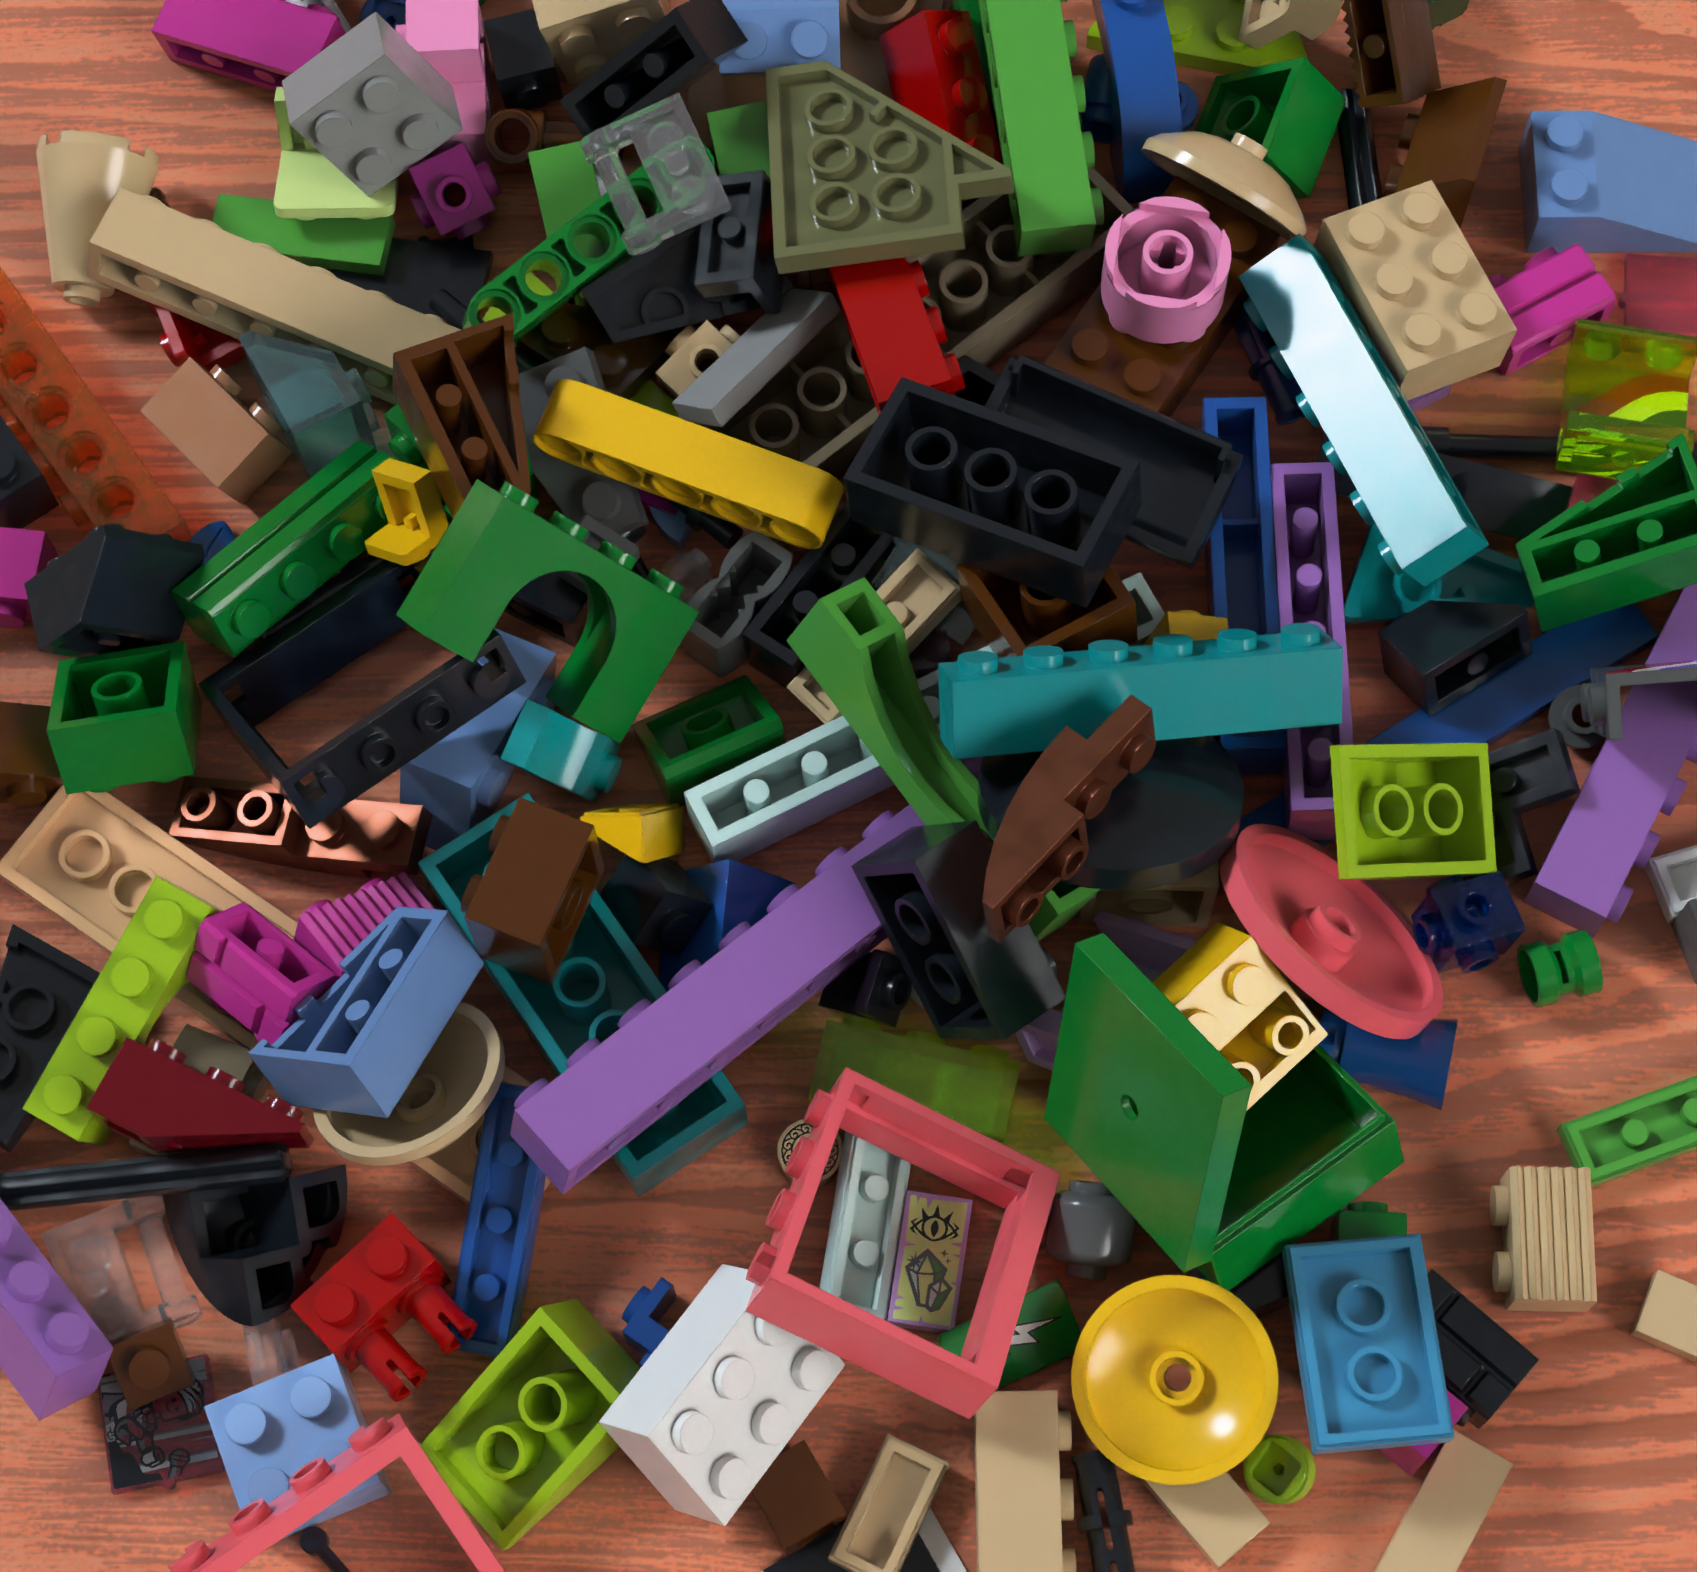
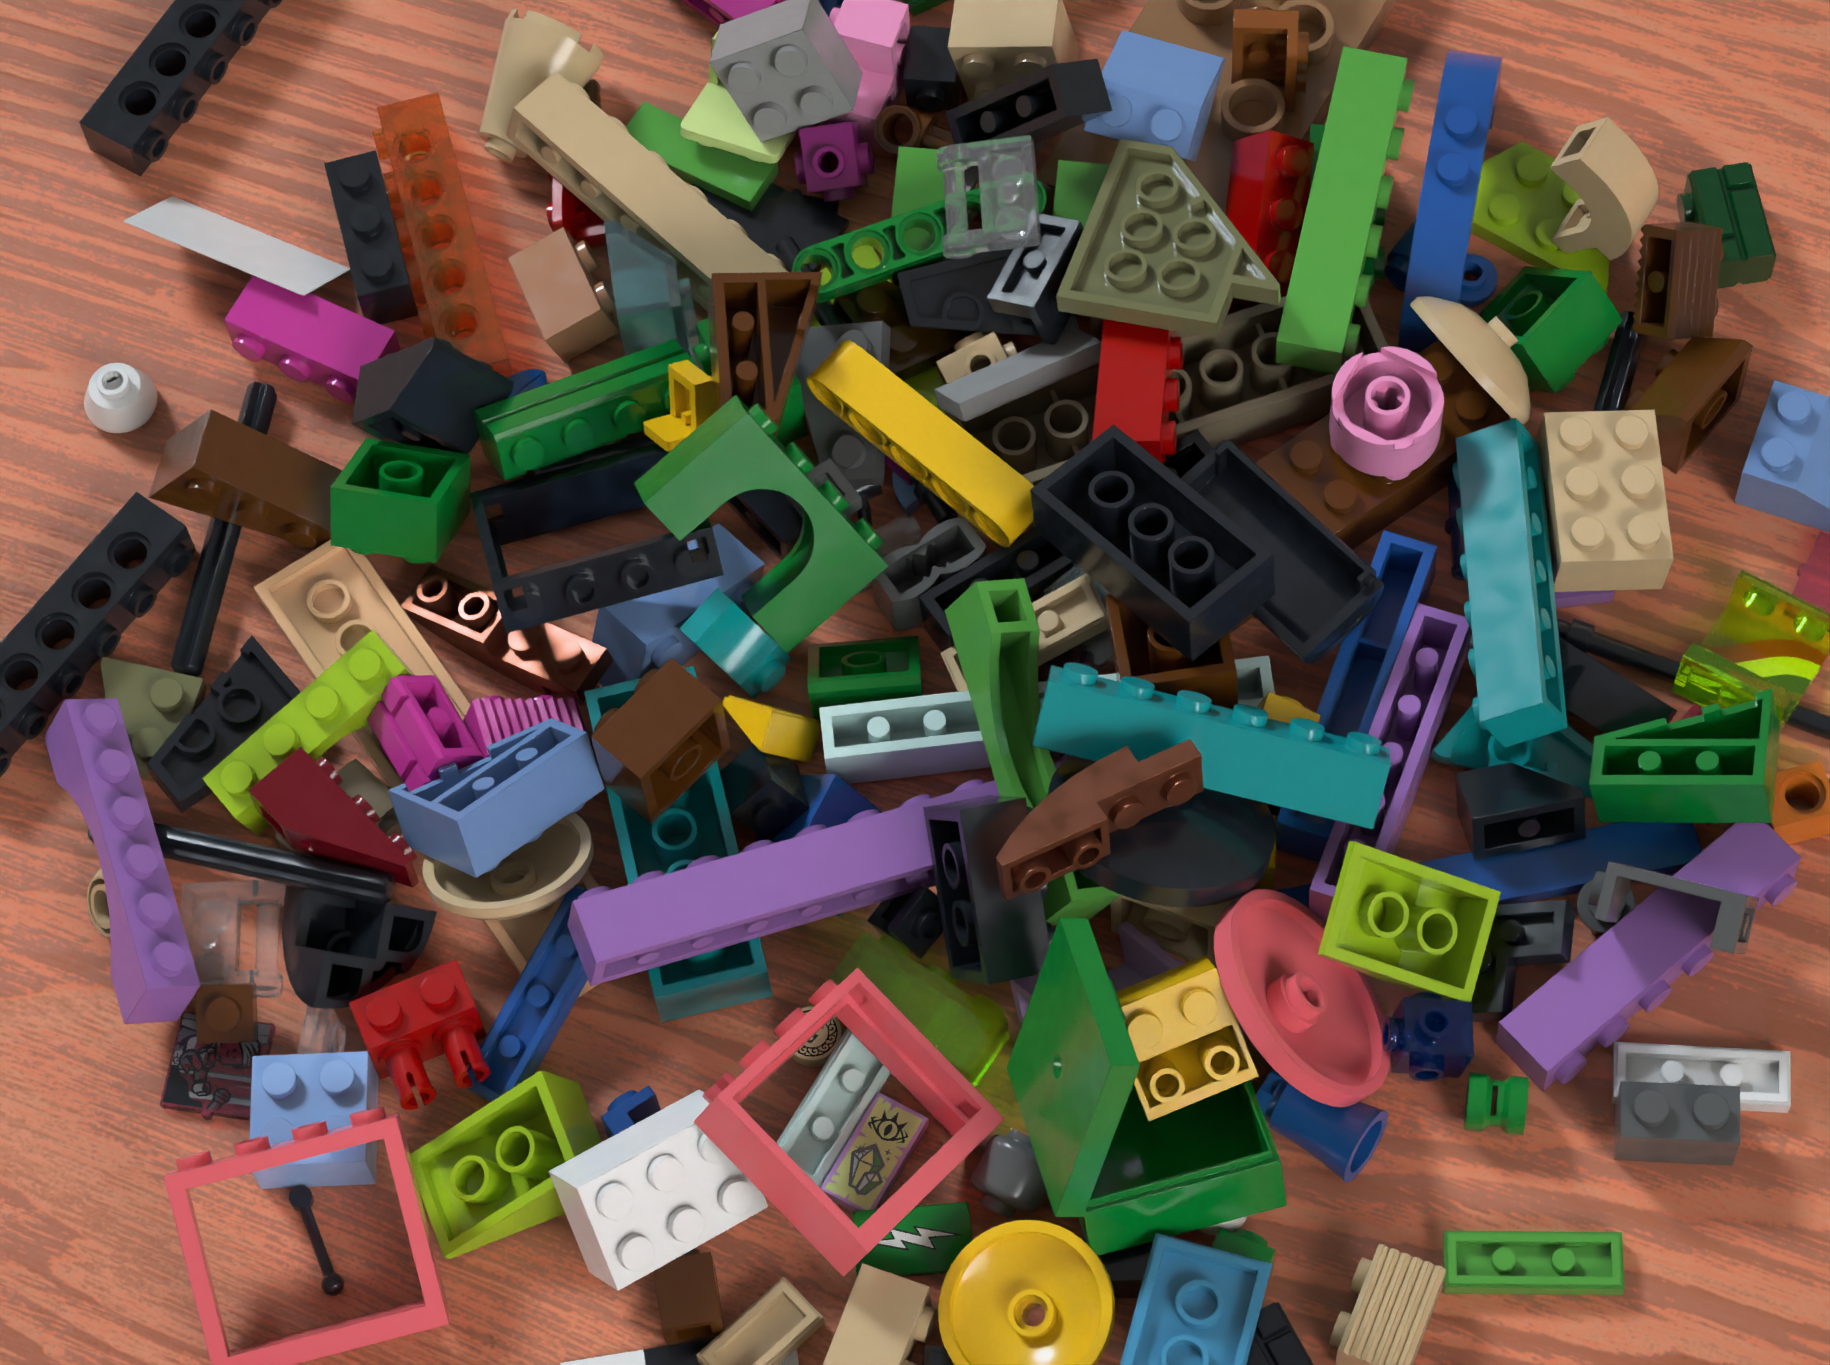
camera: 25 degrees right, 5 degrees down
(1548, 301) = (1717, 546): dark pink brick -> none

